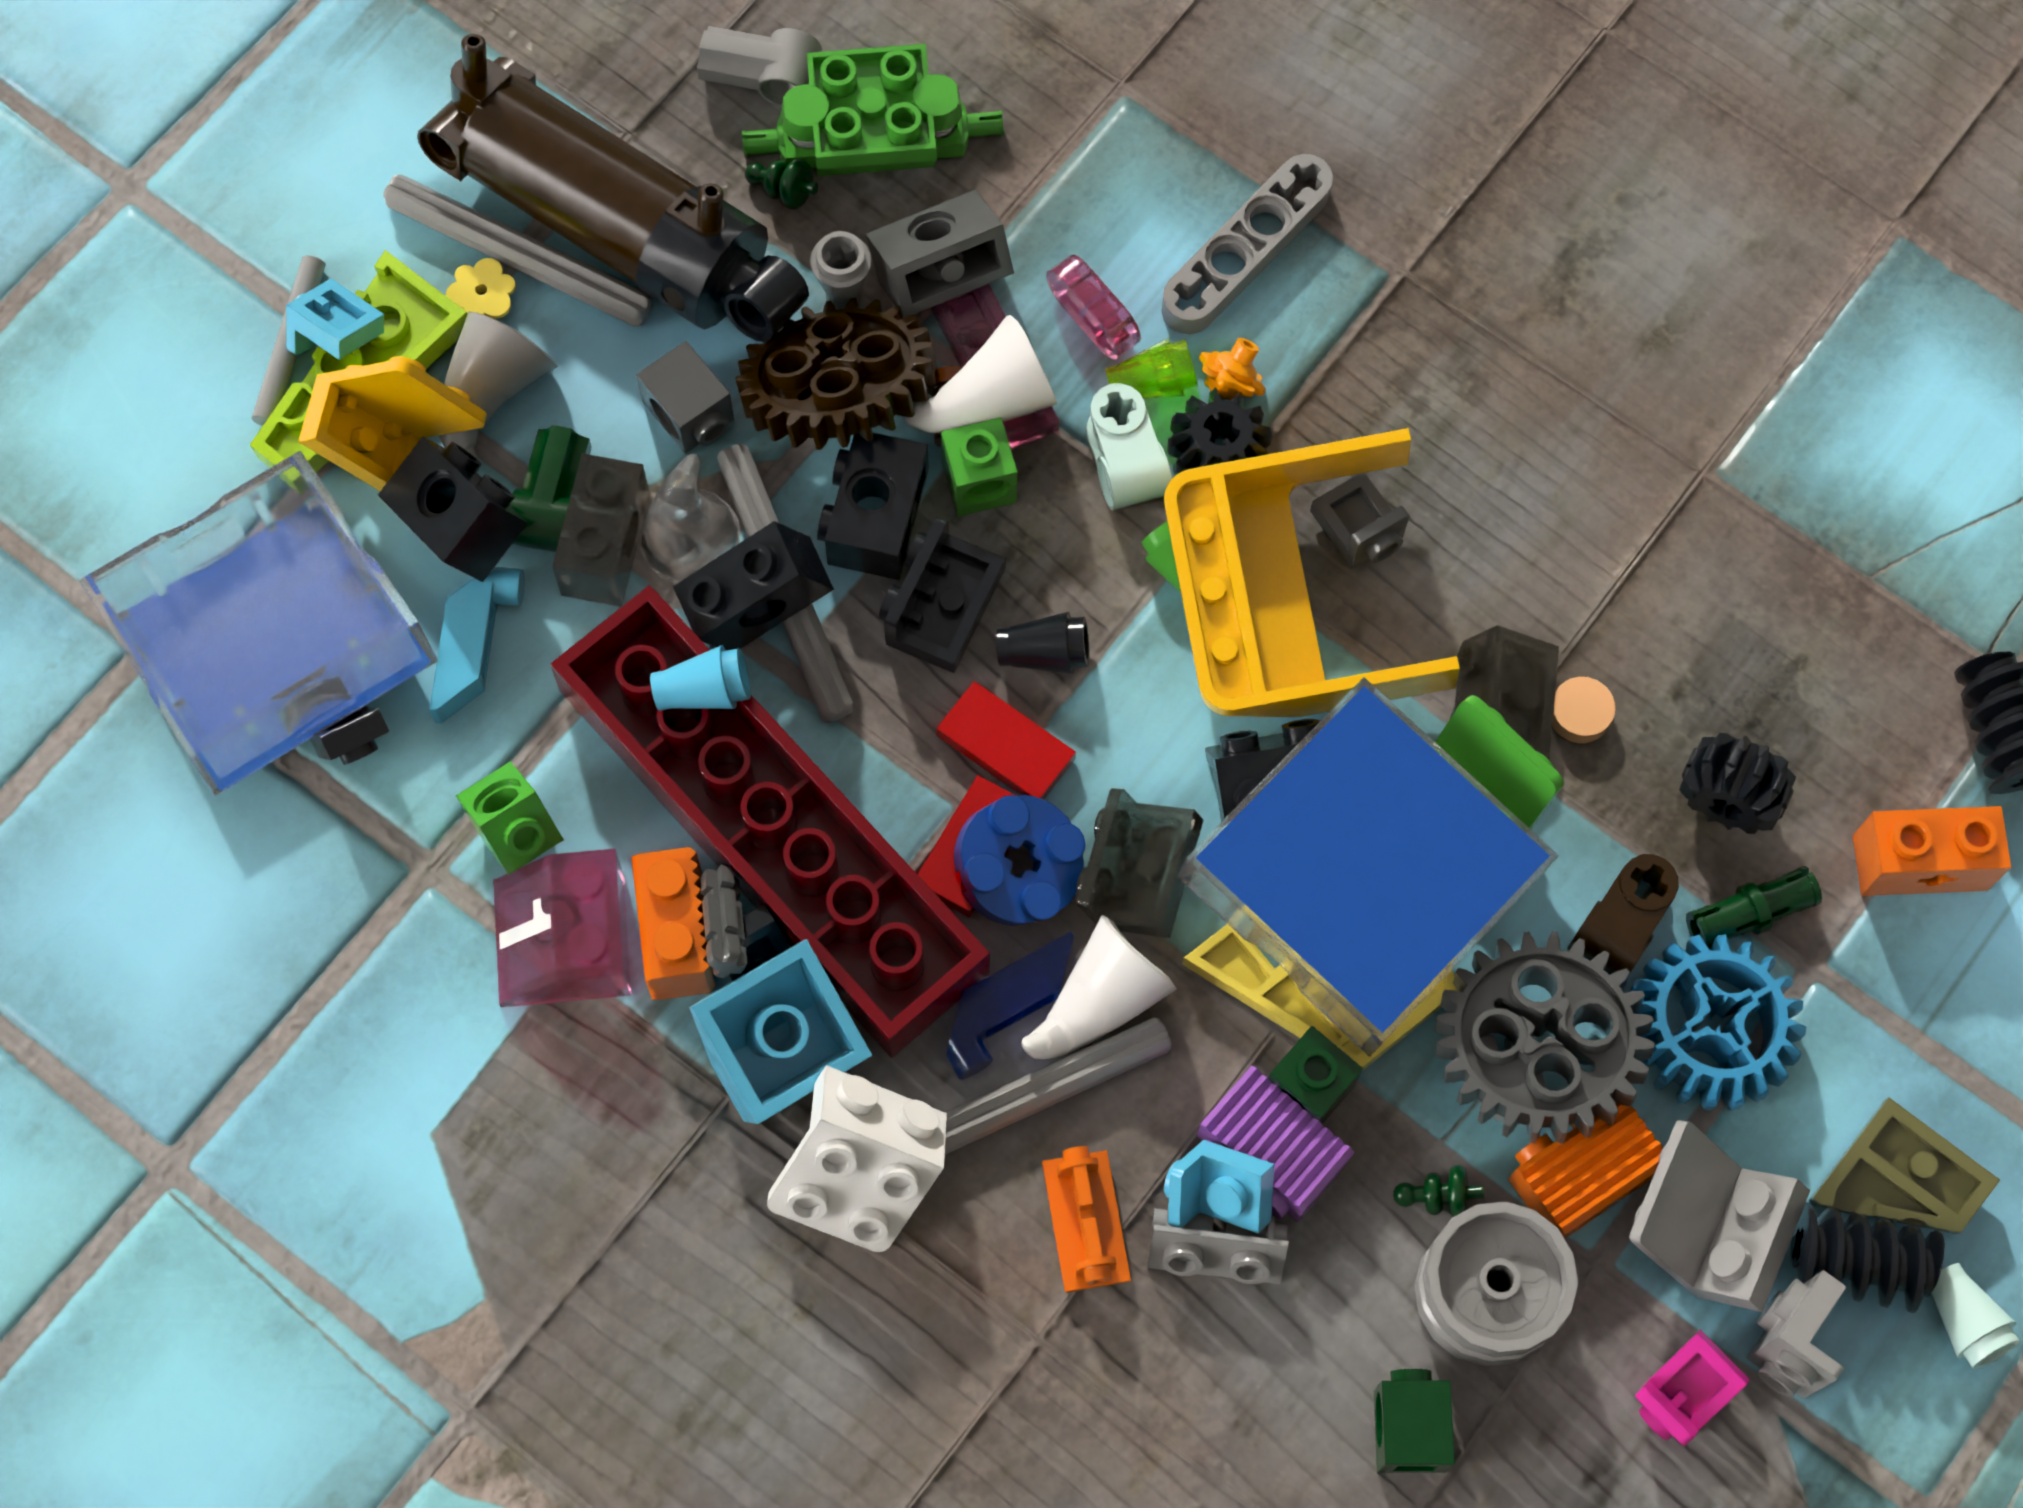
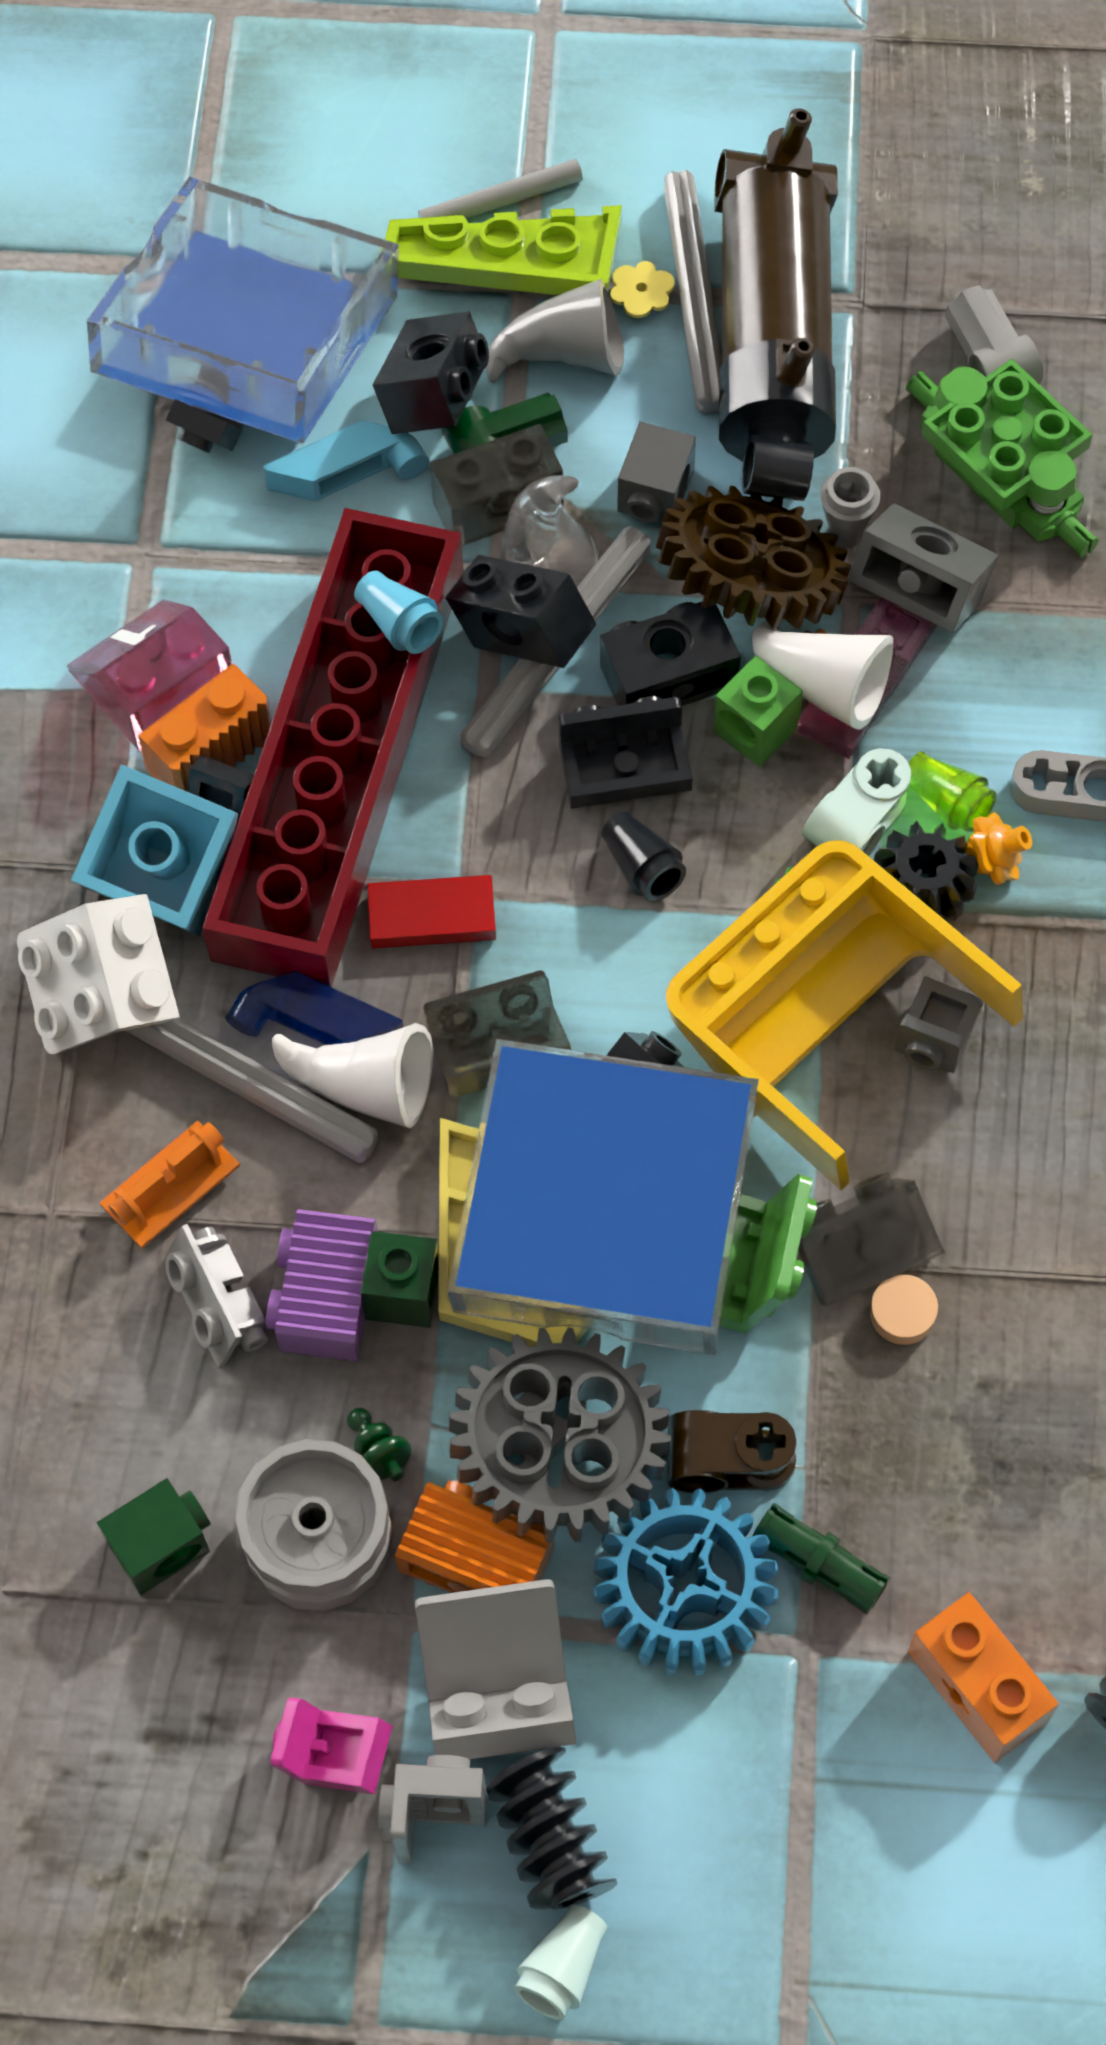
camera: 60 degrees right, 5 degrees down
(332, 320) = (526, 200): medium azure bracket -> none
(377, 414) = (462, 268): yellow bracket -> none
(509, 817) = (210, 569): bright green brick -> none
(723, 921) = (215, 752): dark grey axle -> none
(788, 182) = (902, 429): dark green hair -> none
(986, 872) = (407, 925): blue plate -> none
(1005, 742) = (537, 882): red tile -> none
(1093, 306) = (972, 710): clear pink beam -> none
(1220, 1185) = (257, 1253): medium azure bracket -> none
(1737, 783) = (918, 1467): black gear -> none
(1906, 1175) = (659, 1831): olive wing -> none

